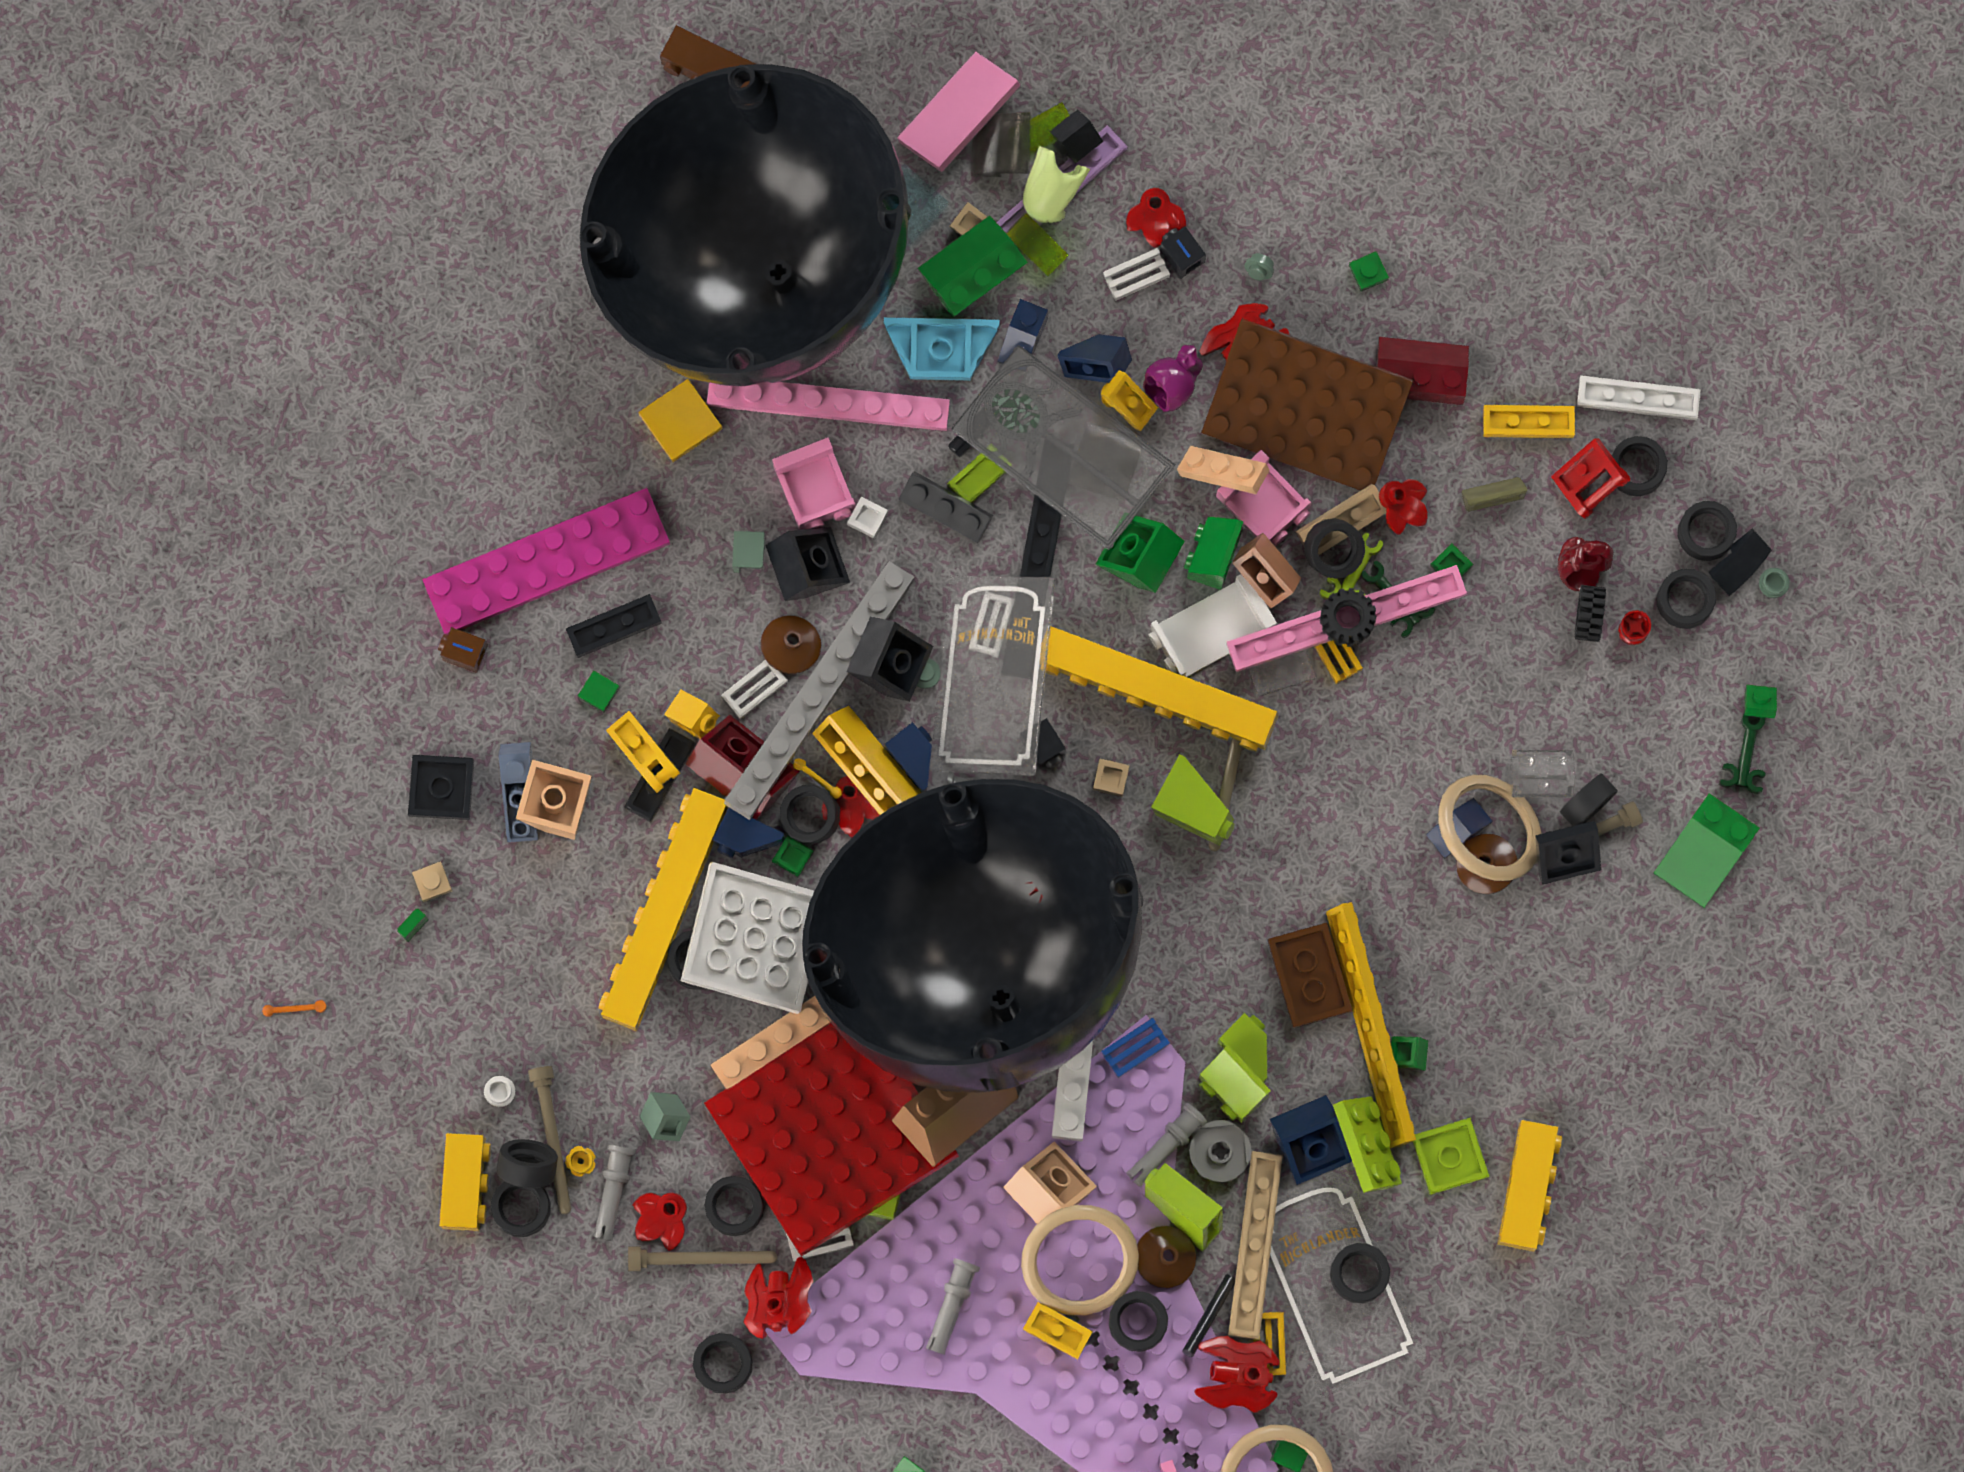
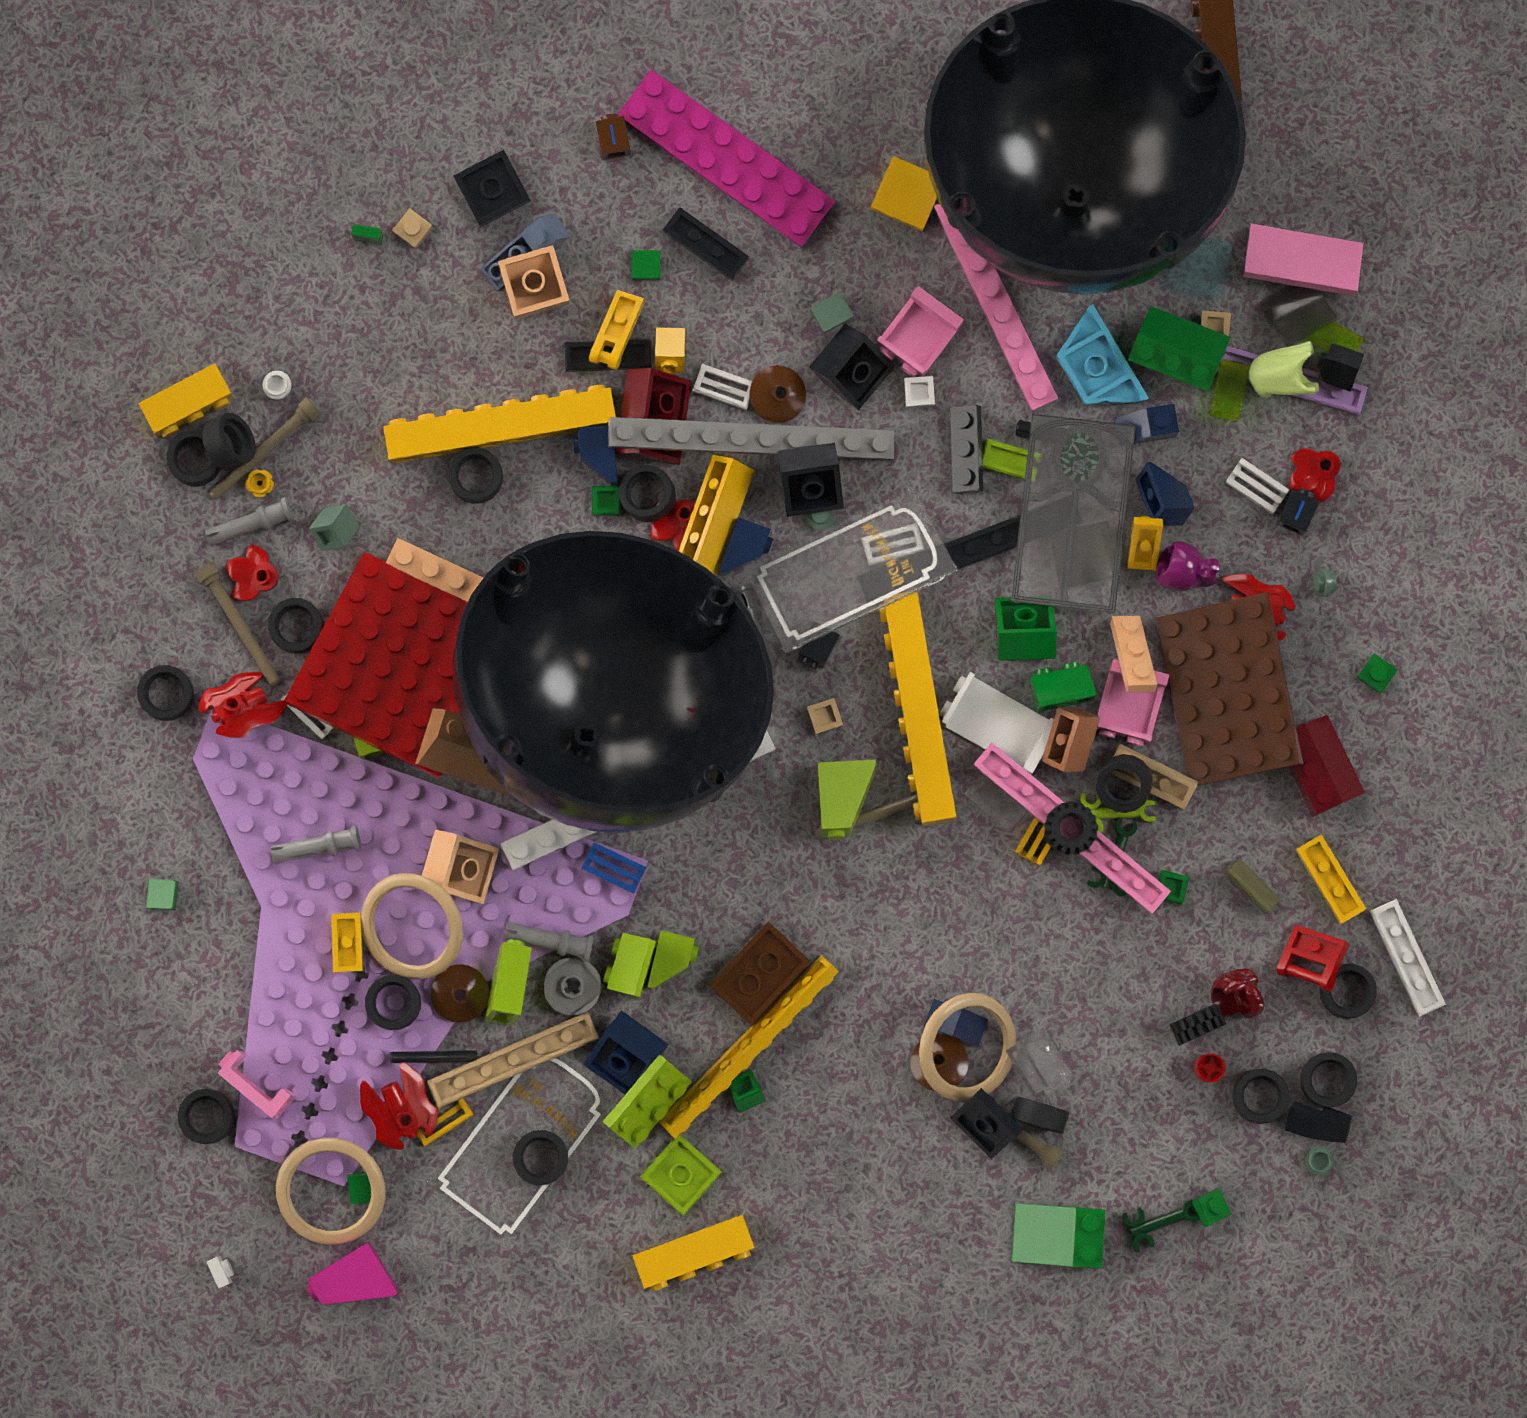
camera: 55 degrees right, 5 degrees up
(320, 1006) = (260, 202): orange hinge -> none
(749, 938) = (514, 501): white plate -> none
(800, 764) = (684, 461): yellow hinge -> none
(1406, 506) = (1195, 821): red plate -> none

